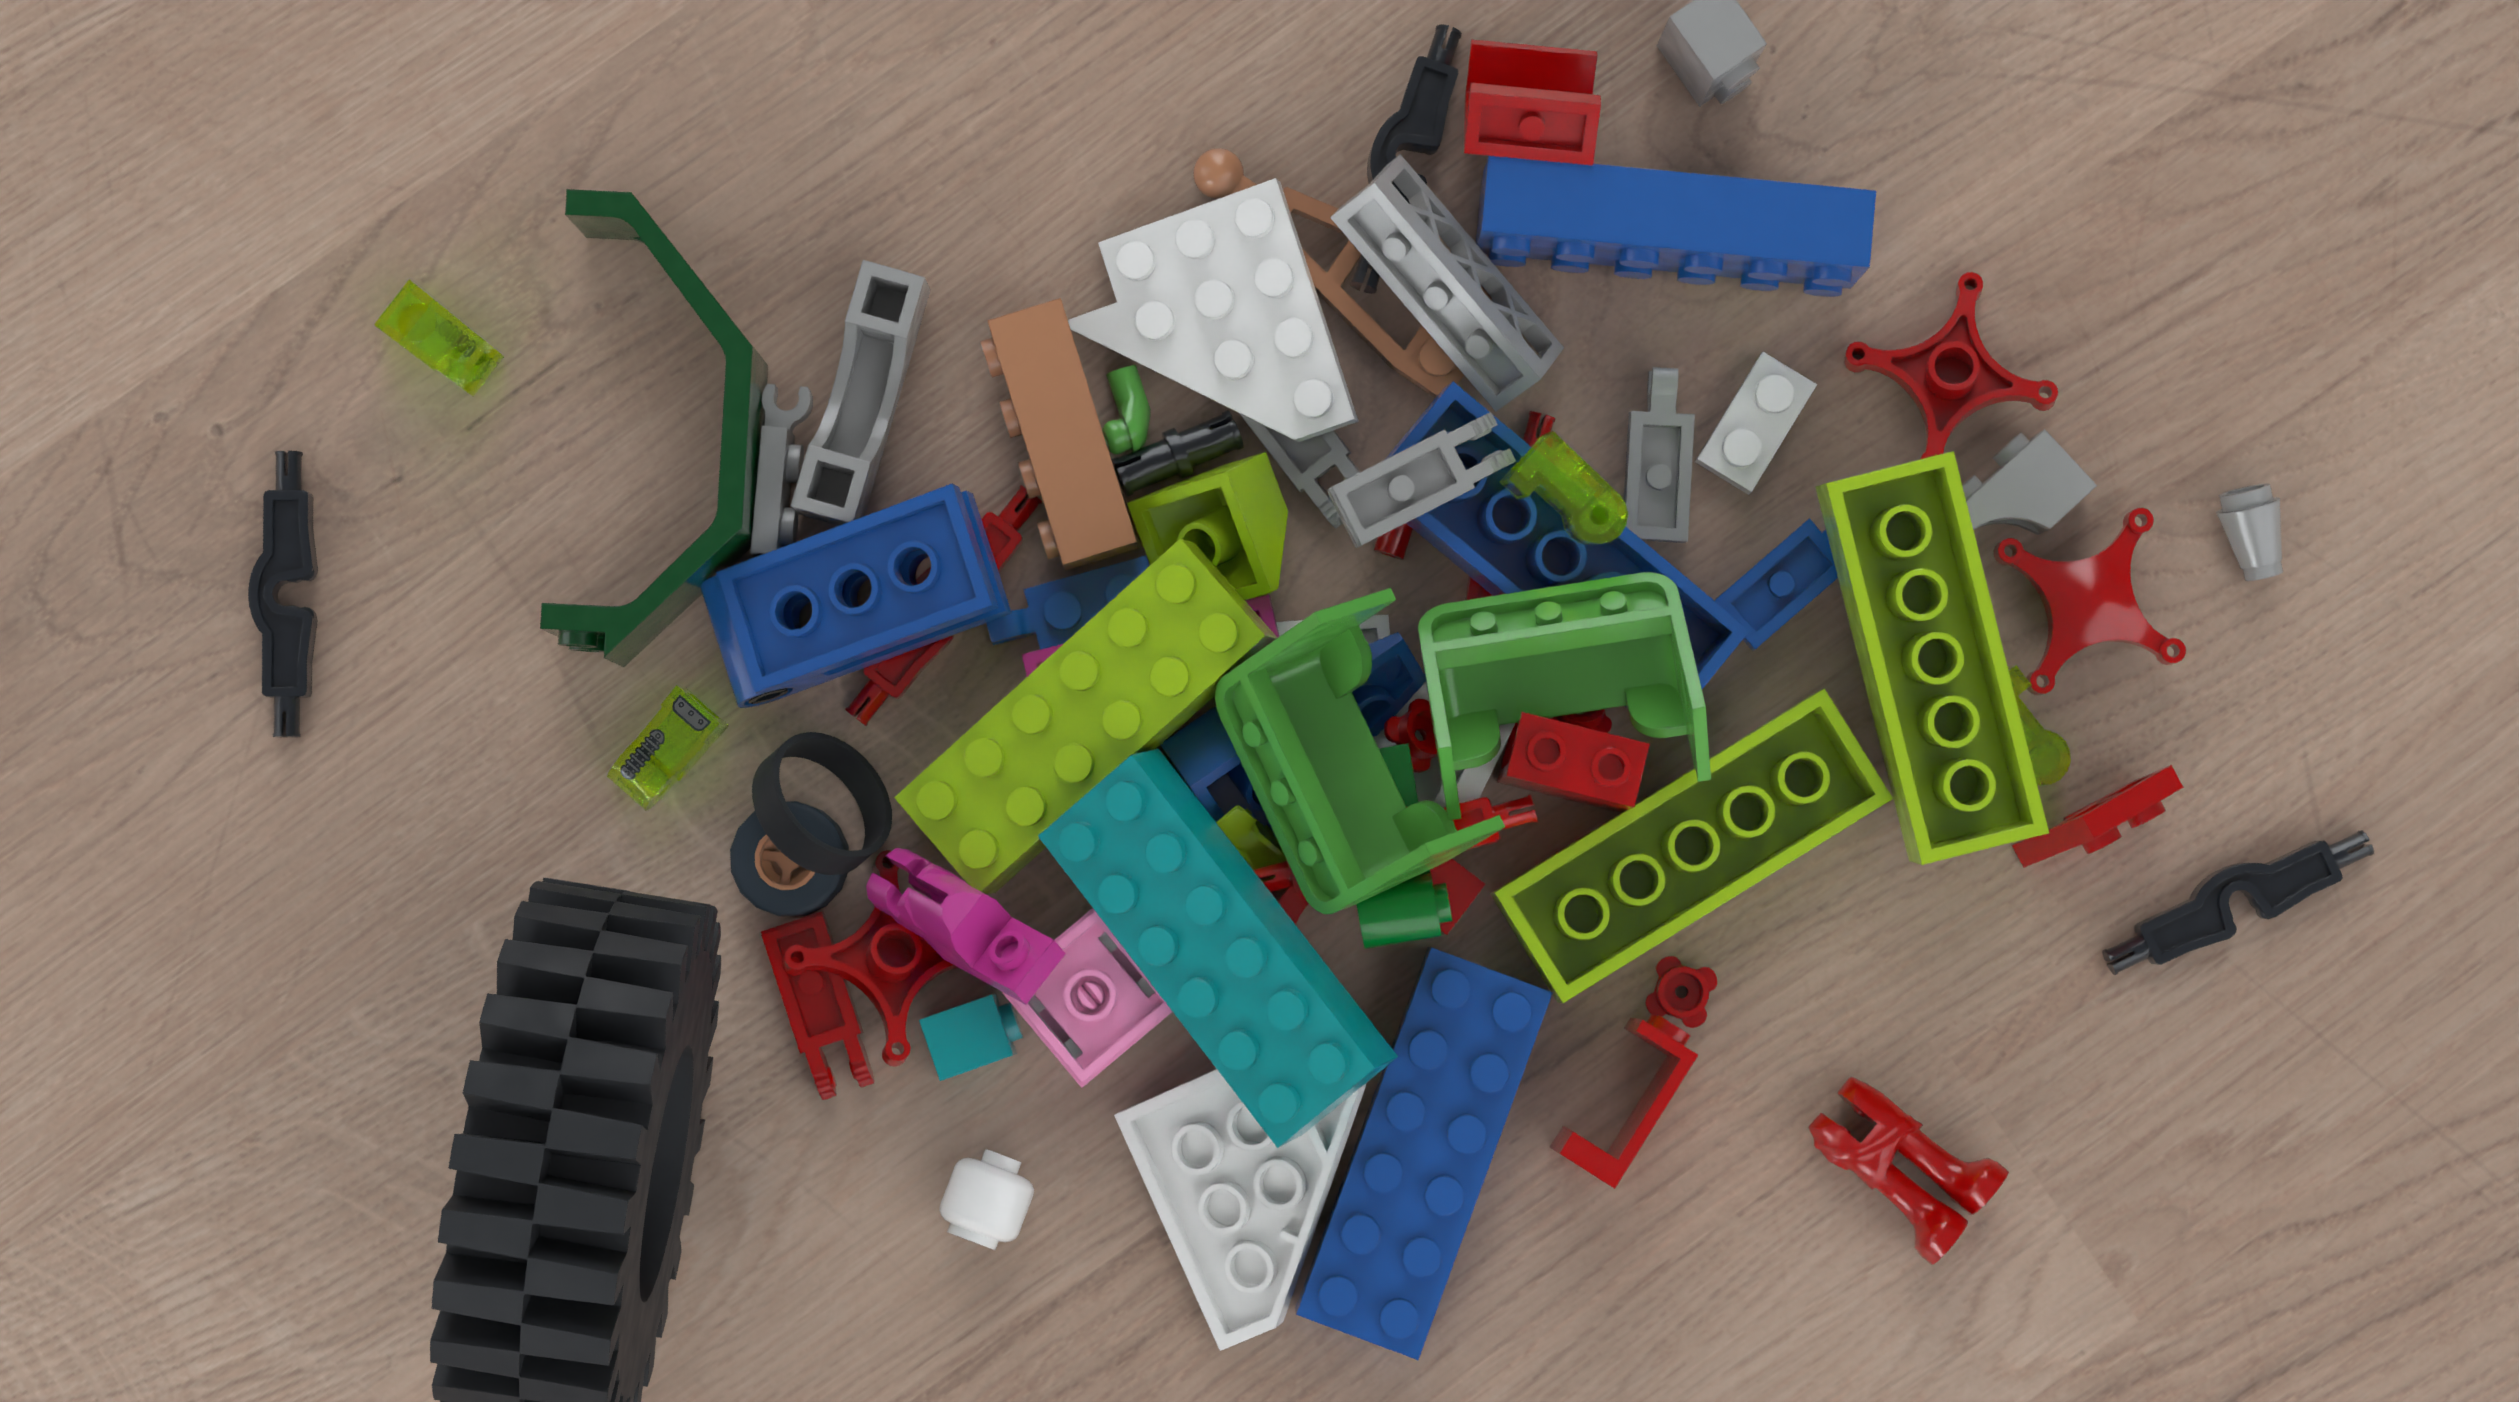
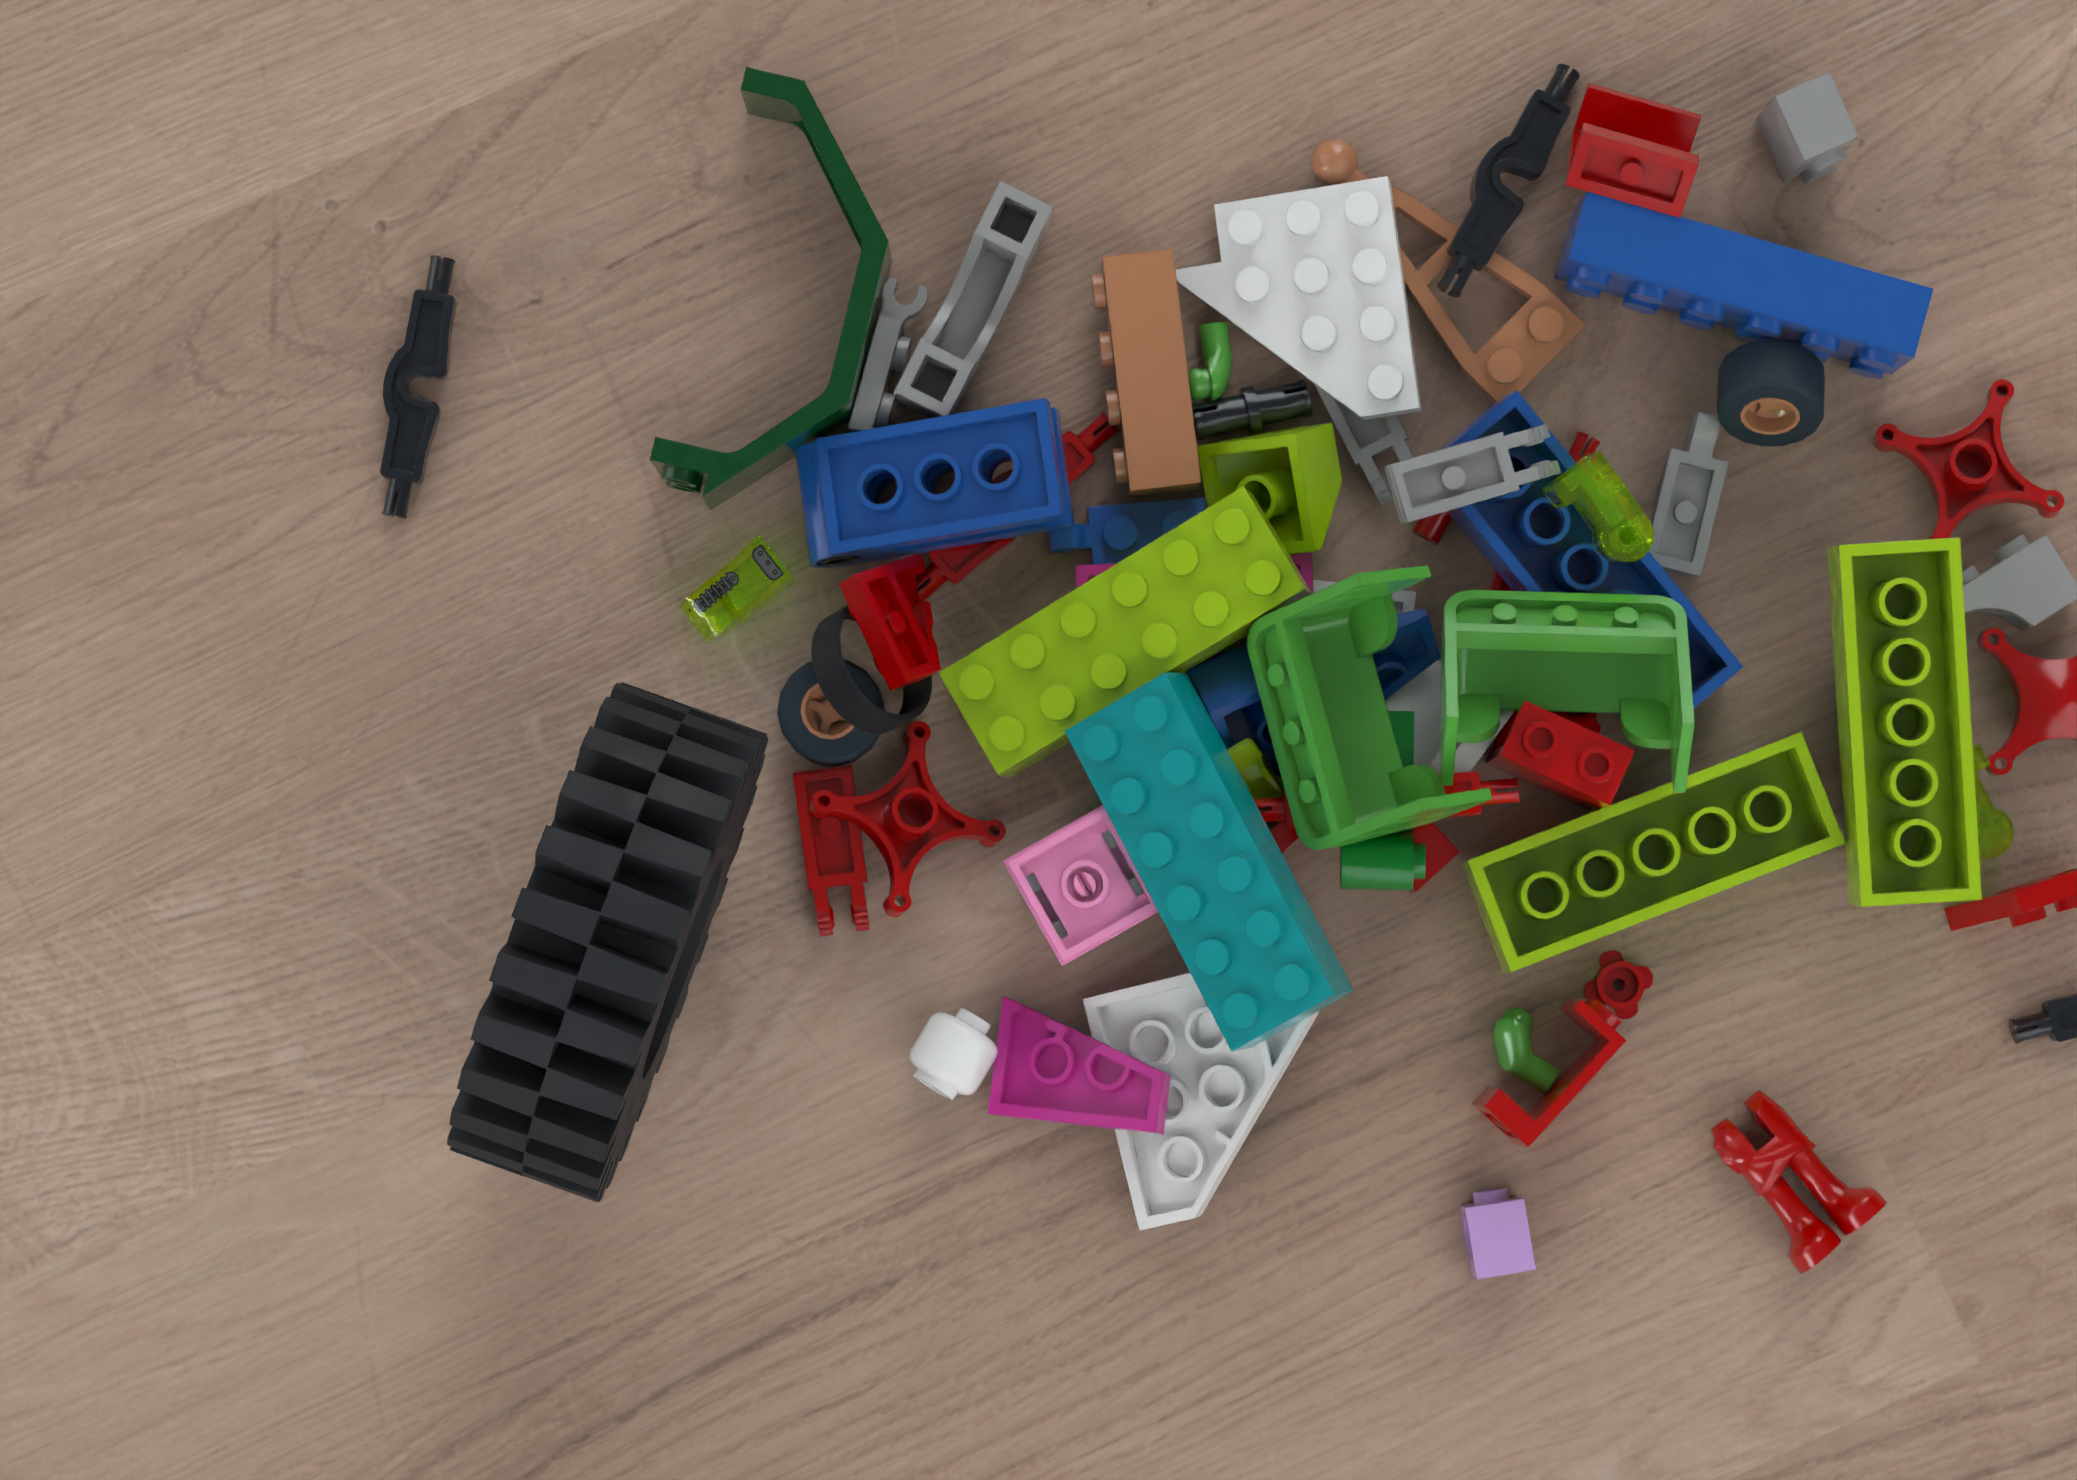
camera: 10 degrees right, 0 degrees up
(438, 338) = (599, 180): clear neon green leg -> none
(836, 750) = (894, 620): none -> red wing
(966, 926) = (983, 801): dark pink plate -> none
(971, 1035) = (966, 902): teal brick -> none
(1117, 1202) = (1071, 1078): none -> dark pink wing
(1402, 731) = (1410, 698): red plate -> none
(1423, 1153) = (1358, 1084): blue brick -> none
(1446, 286) = (1526, 301): light grey fence -> none
(1585, 1082) = (1516, 1052): none -> bright green arm
(1601, 1283) = (1497, 1234): none -> lavender brick
(1725, 333) = (1771, 392): none -> black wheel
(1755, 423) = (1781, 484): white plate -> none
(1781, 583) = (1779, 630): blue plate -> none

